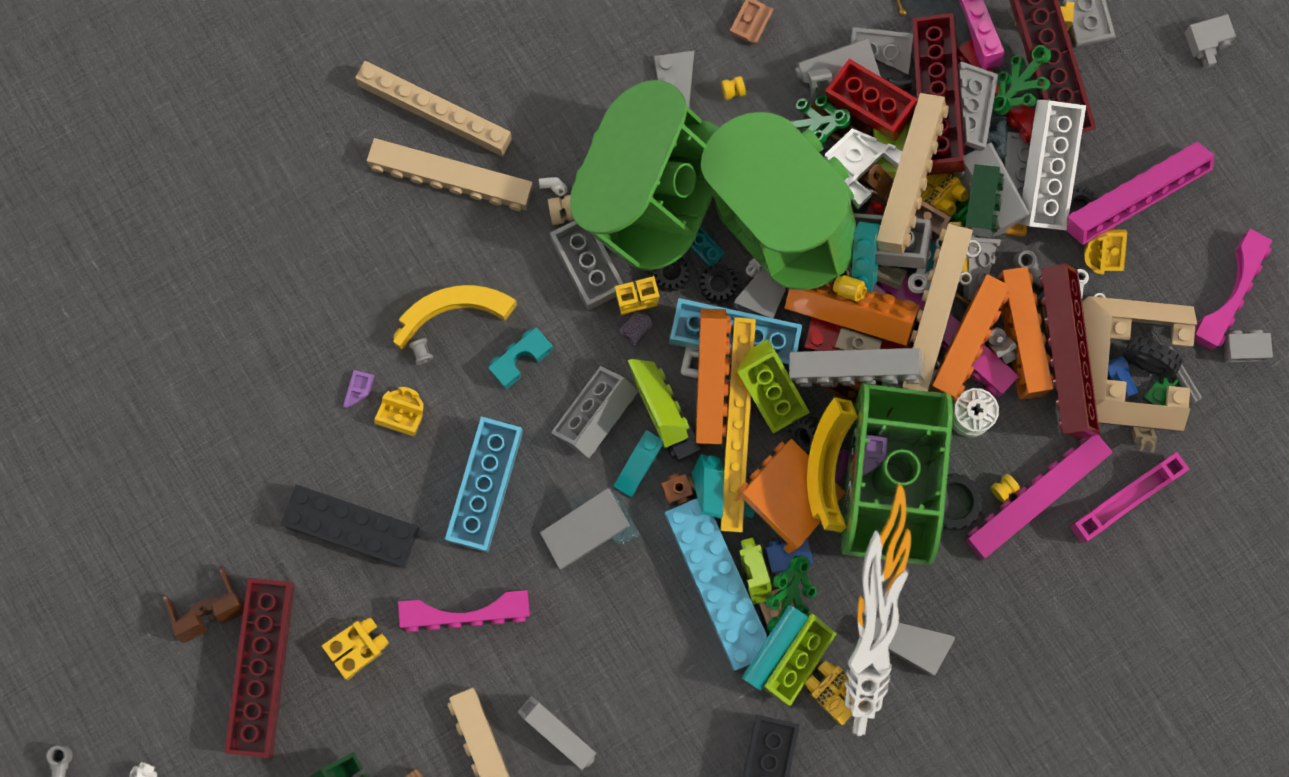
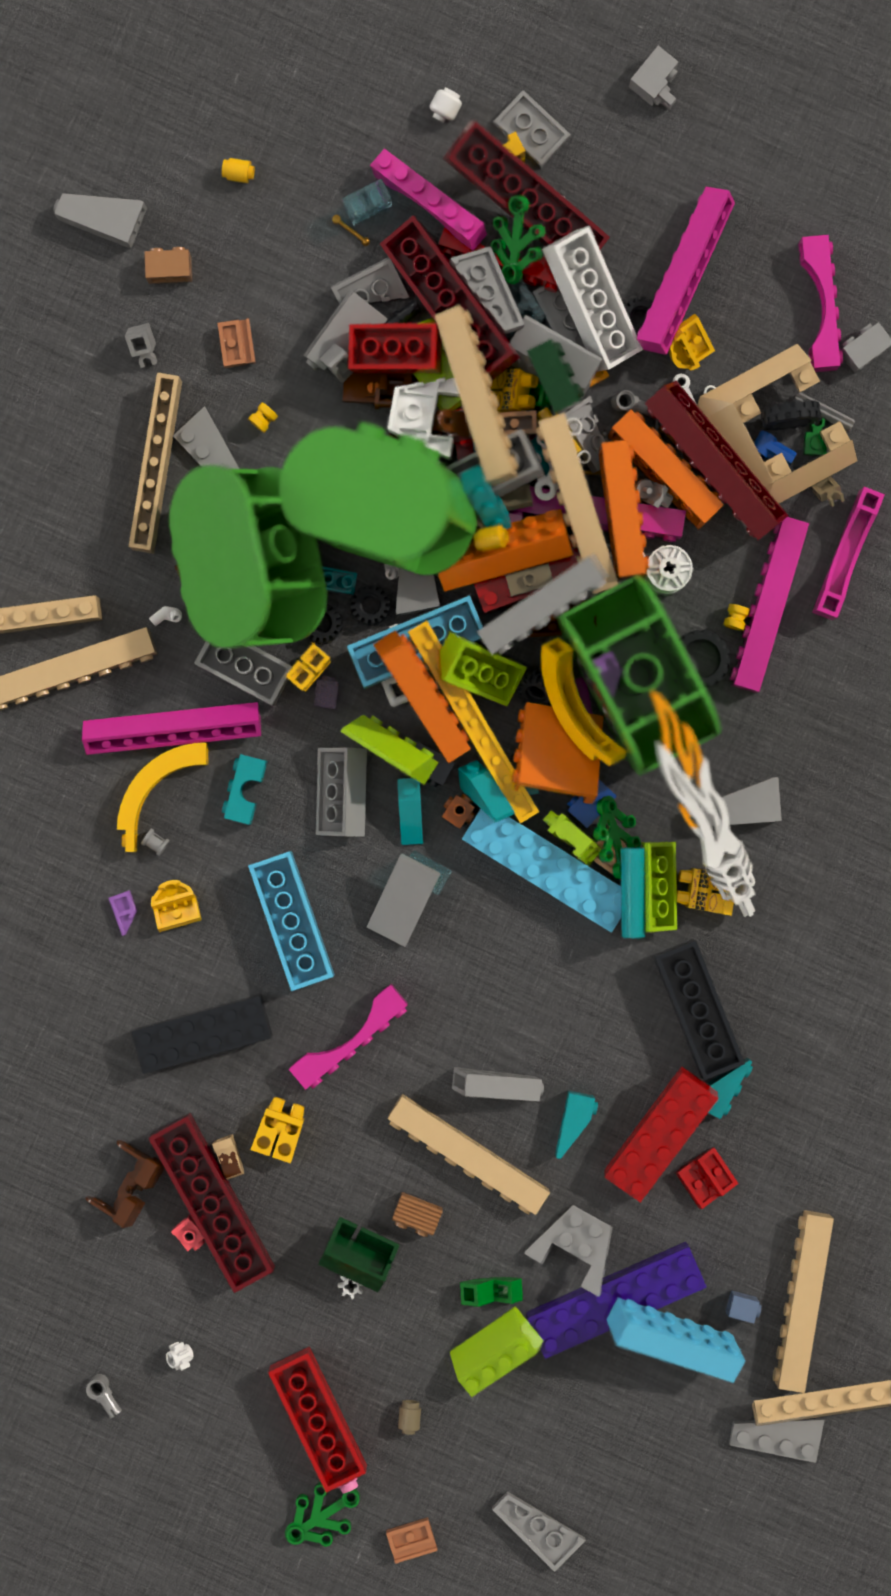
camera: 30 degrees left, 10 degrees up
(228, 674) = (188, 1225): none -> coral brick
(299, 641) = (228, 1156): none -> leg
(497, 272) = (171, 728): none -> dark pink brick
(557, 204) = (184, 637): tan wheel -> none
(626, 66) = (155, 463): none -> tan brick
(837, 119) = (358, 400): green plant -> none

